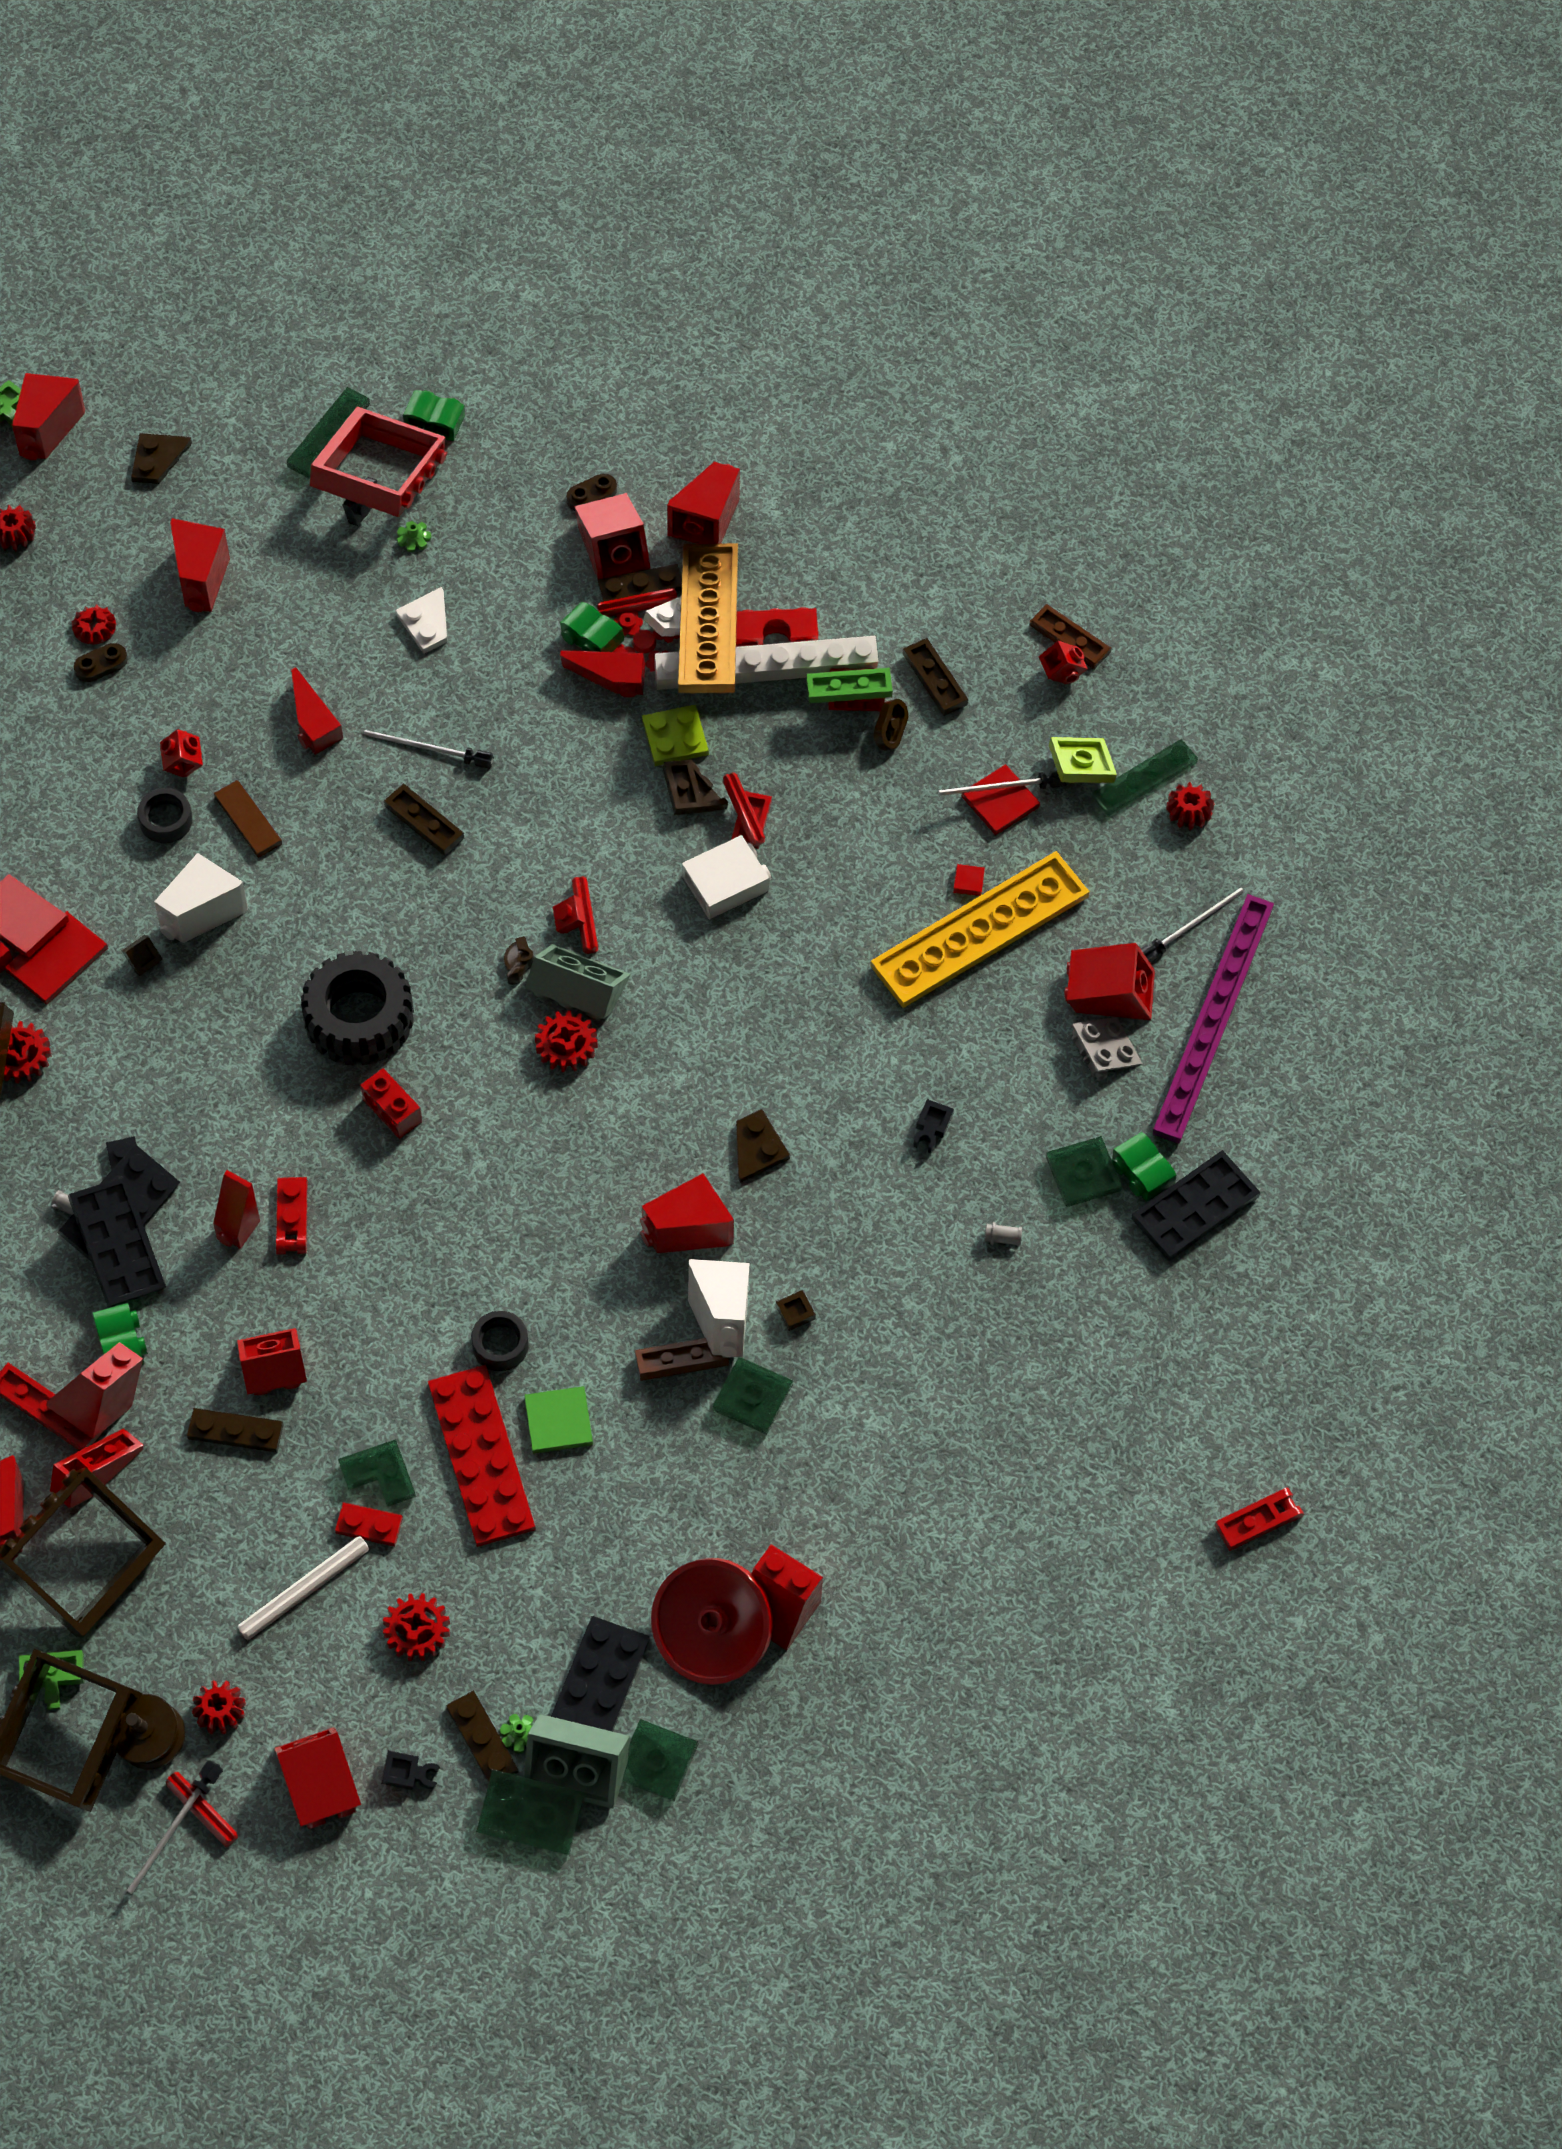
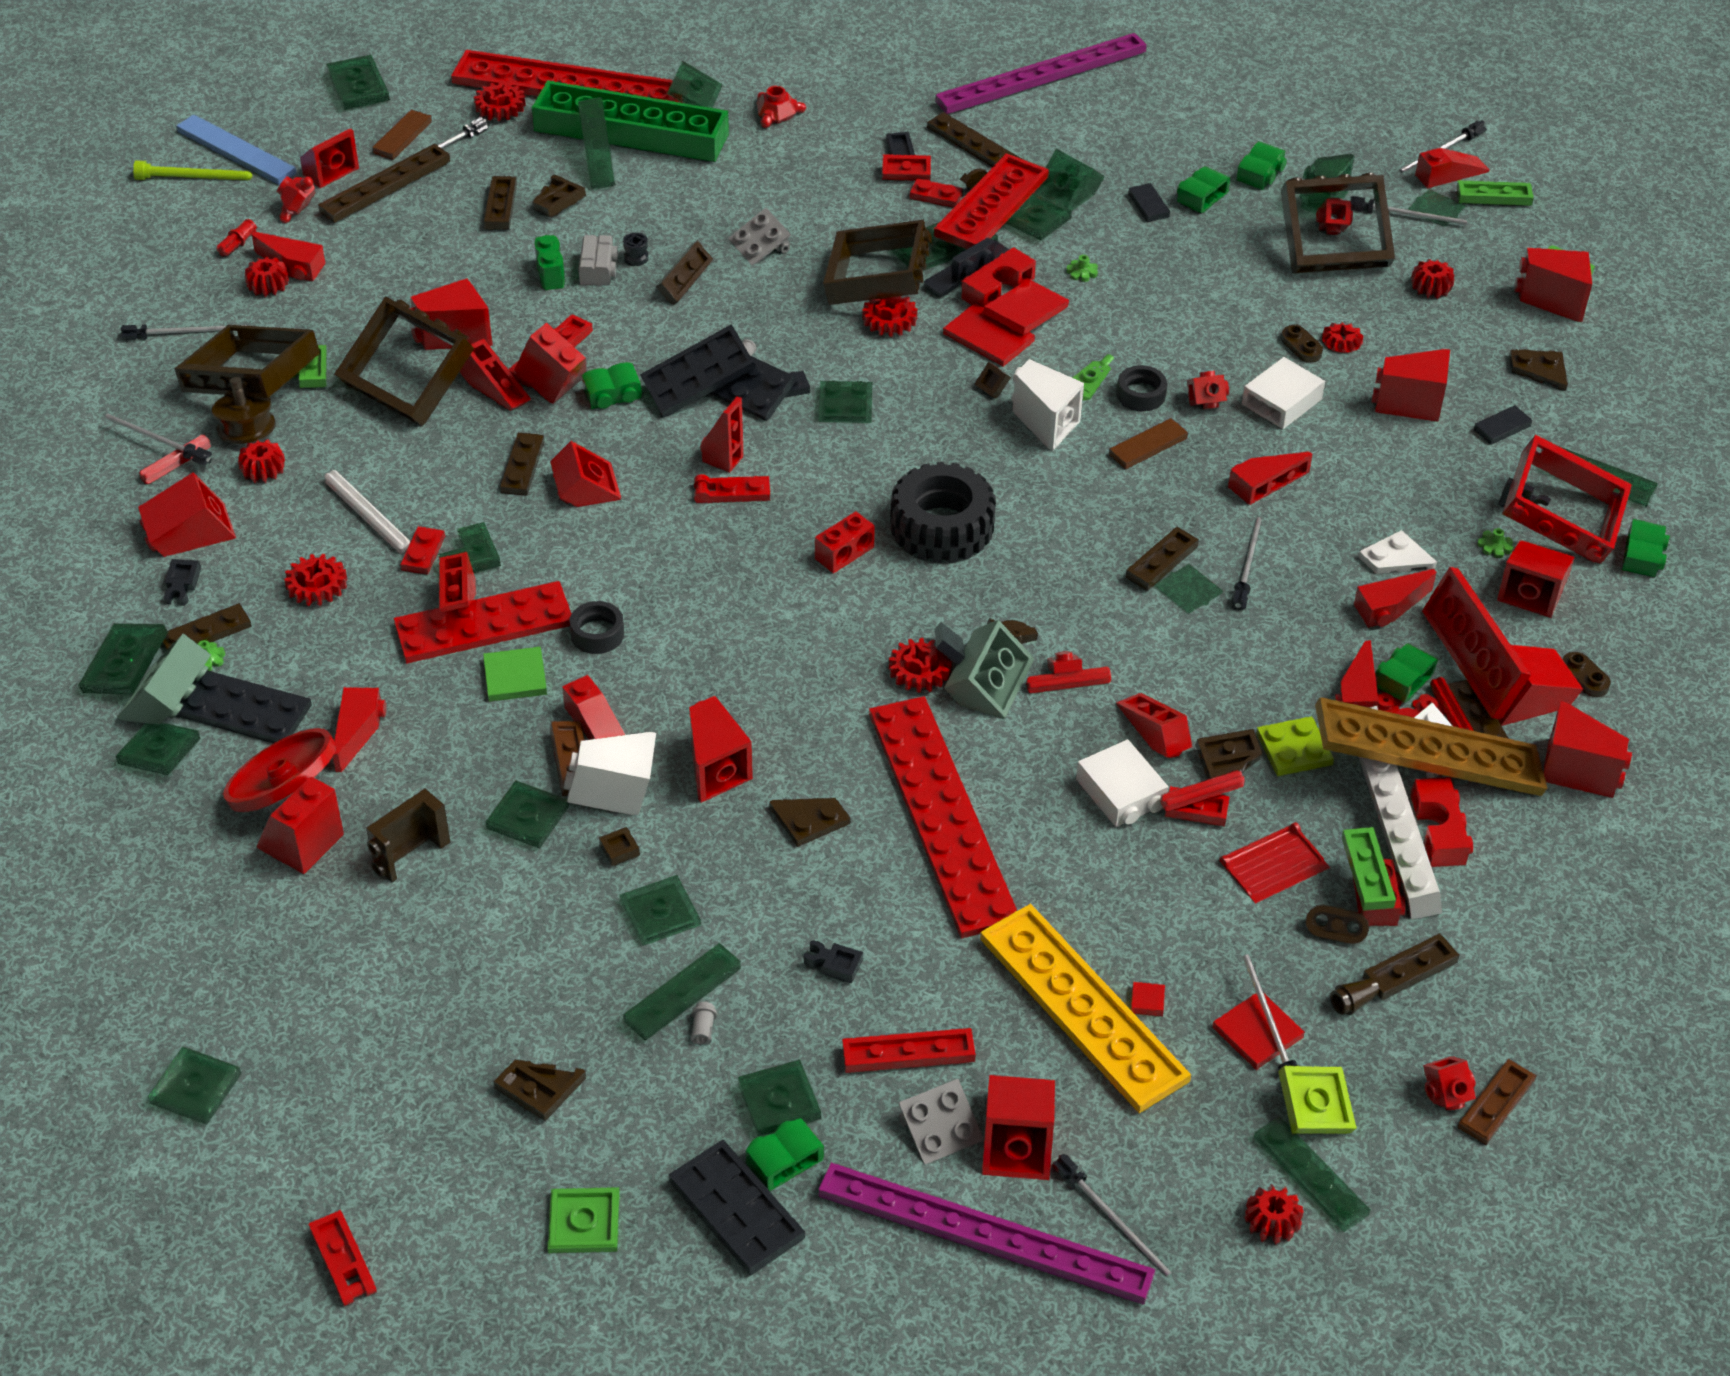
camera: 90 degrees right, 15 degrees down
(142, 873) = (1092, 383): none -> bright green piece
(157, 1103) = (845, 401): none -> clear green plate
(186, 685) = (1283, 392): none -> white brick
(243, 503) = (1503, 425): none -> black tile
(454, 1471) = (456, 582): none -> red slope
(461, 801) = (1189, 588): none -> clear green piece
(473, 505) = (1535, 578): none -> red slope
(494, 629) = (1389, 599): none -> red slope
(546, 1009) = (949, 643): none -> black tile
(574, 564) = (1476, 643): none -> red plate
(623, 1336) = (589, 706): none -> slope
(627, 1563) = (356, 723): none -> red slope
(649, 843) = (1158, 724): none -> red slope
(751, 1032) = (943, 815): none -> red plate
(778, 1487) = (404, 830): none -> dark brown panel
(813, 768) = (1274, 863): none -> red piece
(869, 1274) = (660, 910): none -> clear green plate
(968, 722) = (1353, 995): none -> dark brown cone
(968, 1251) = (682, 991): none -> clear green plate
(1030, 1068) = (908, 1050): none -> red plate
(1076, 1368) = (538, 1086): none -> dark brown wing
(1081, 1667) = (194, 1085): none -> clear green plate
(1210, 1328) = (584, 1220): none -> bright green tile

